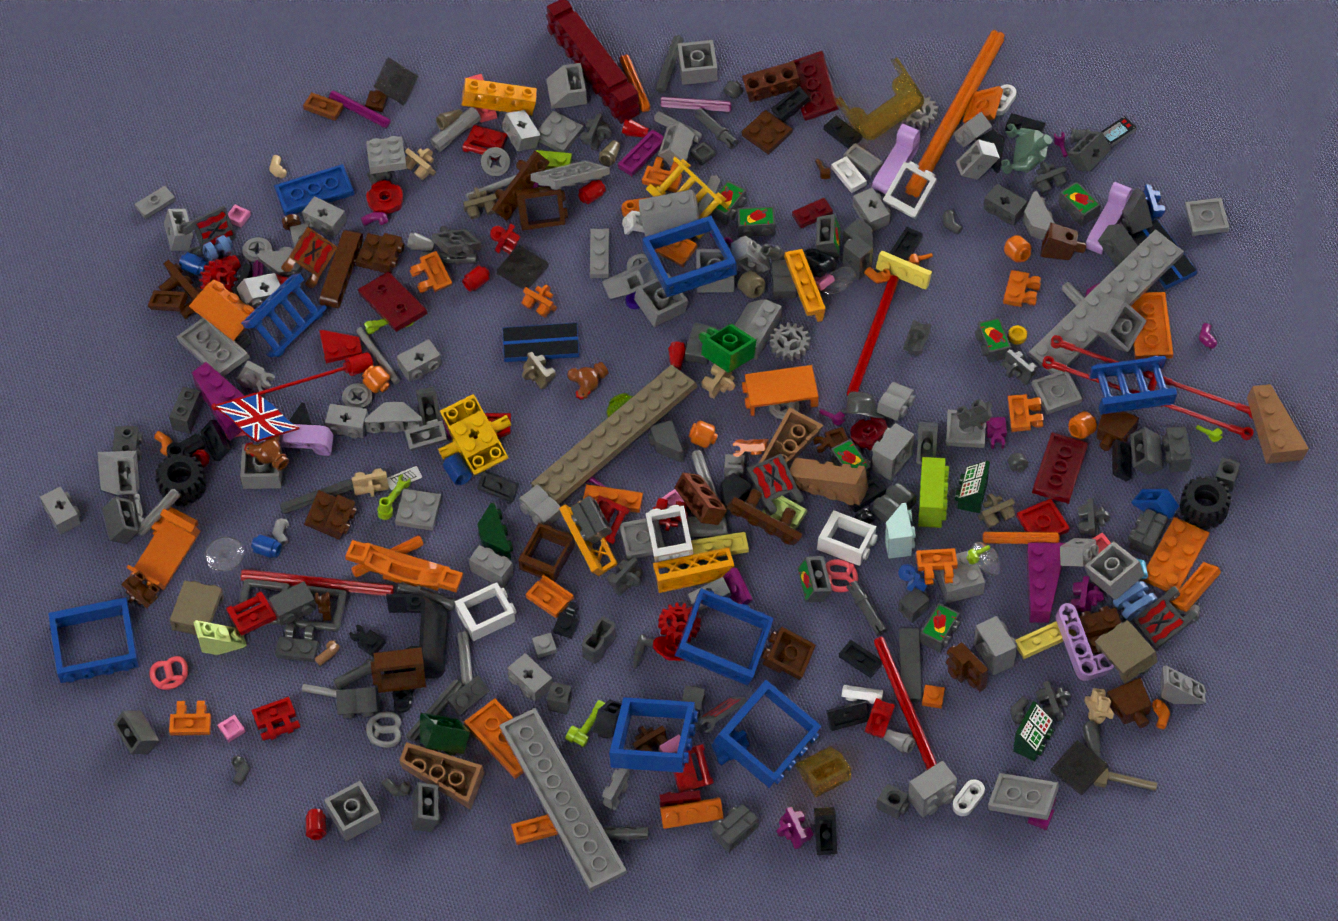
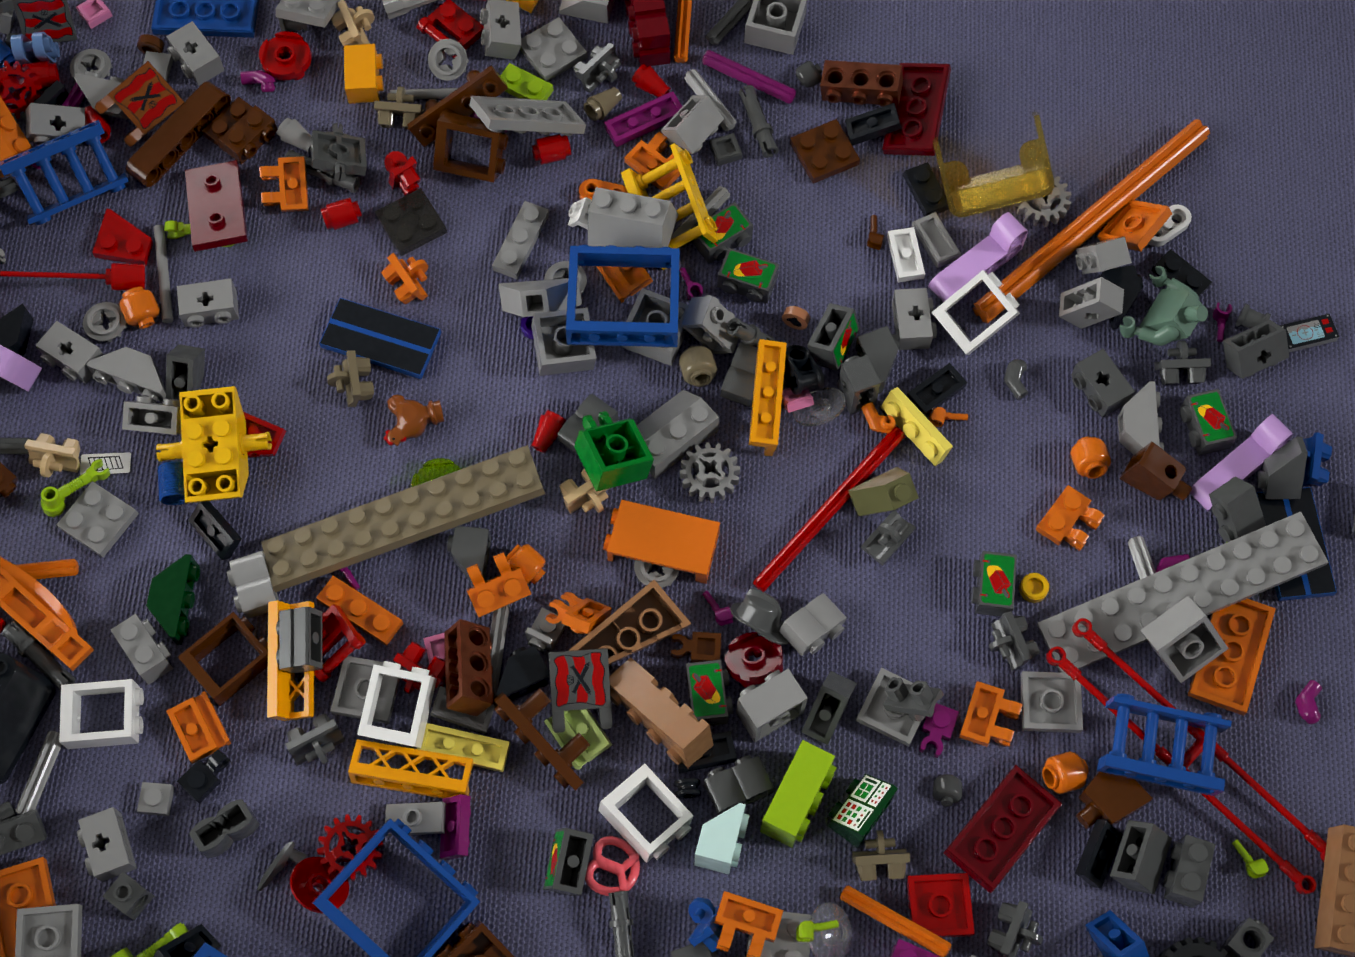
camera: 20 degrees right, 10 degrees up
(441, 186) = (362, 73): none -> light orange piece
(697, 451) = (497, 591): none -> orange plate
(799, 235) = (796, 317): none -> nougat tile
(808, 214) = (834, 290): dark red plate -> none
(902, 313) = (884, 492): none -> olive slope

